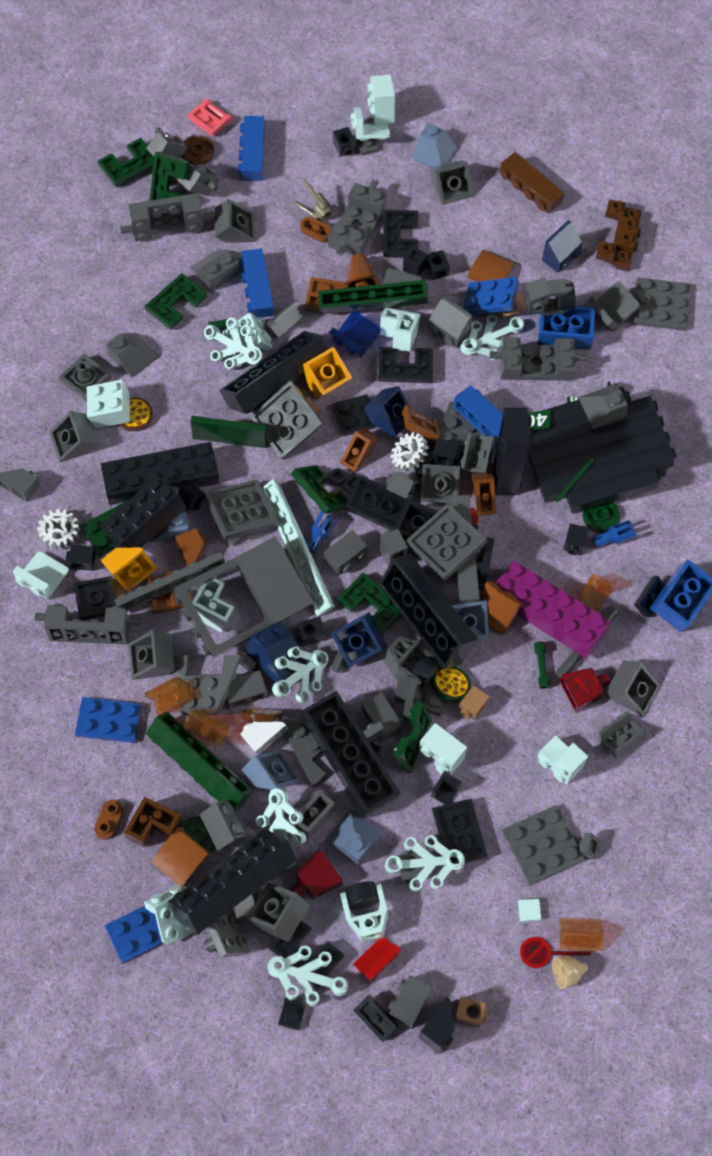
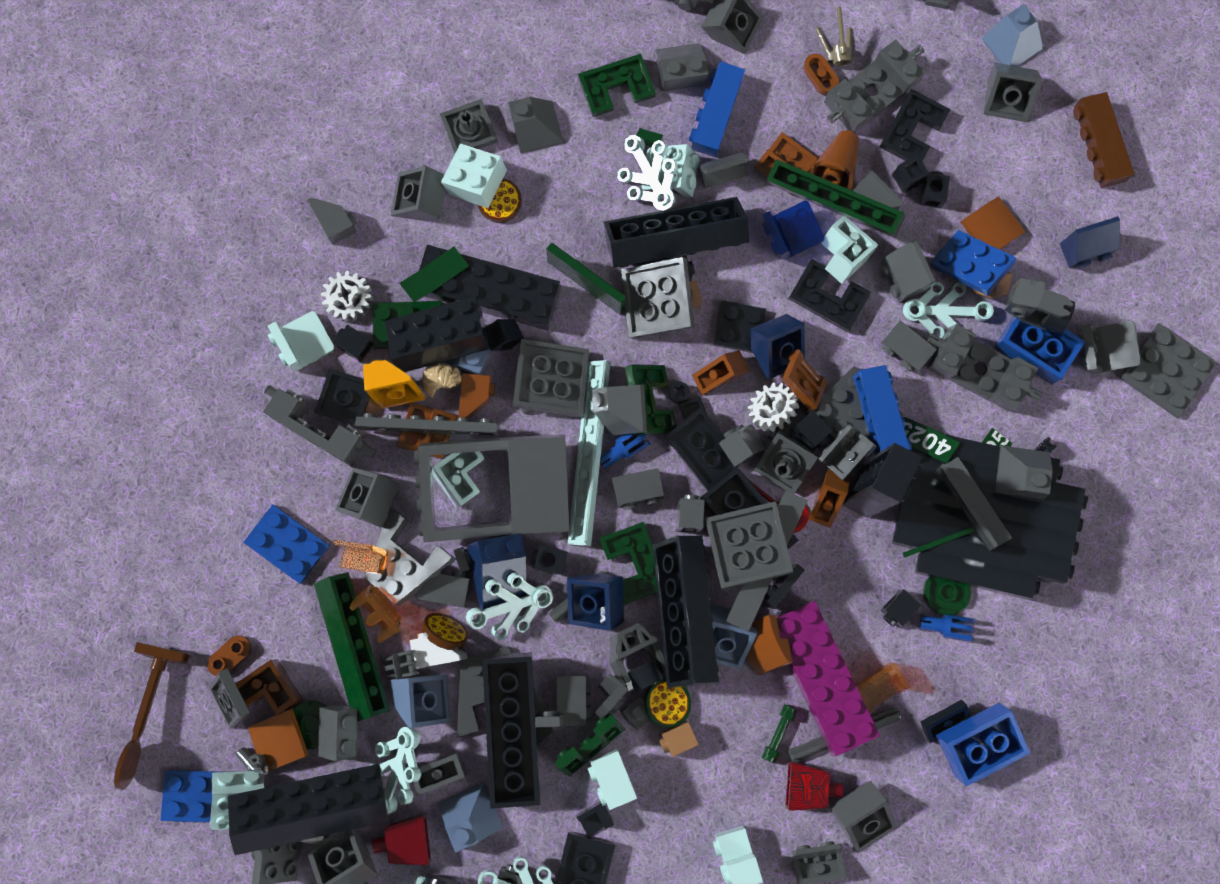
camera: 25 degrees right, 15 degrees up
(56, 844) = (131, 753): none -> reddish brown piece
(118, 478) = (434, 274): none -> dark green sticker
(128, 839) = (229, 698): none -> dark grey tile
(158, 545) = (440, 376): none -> tan hair
(171, 880) = (250, 761): none -> dark grey arm
(243, 754) = (402, 665): none -> dark grey arm
(303, 502) = (621, 408): none -> dark grey slope
(325, 373) = (732, 263): light orange slope -> none
(478, 370) = (908, 346): none -> dark grey brick
(582, 442) = (974, 504): none -> dark grey panel
(624, 244) = (1170, 271): reddish brown bracket -> none

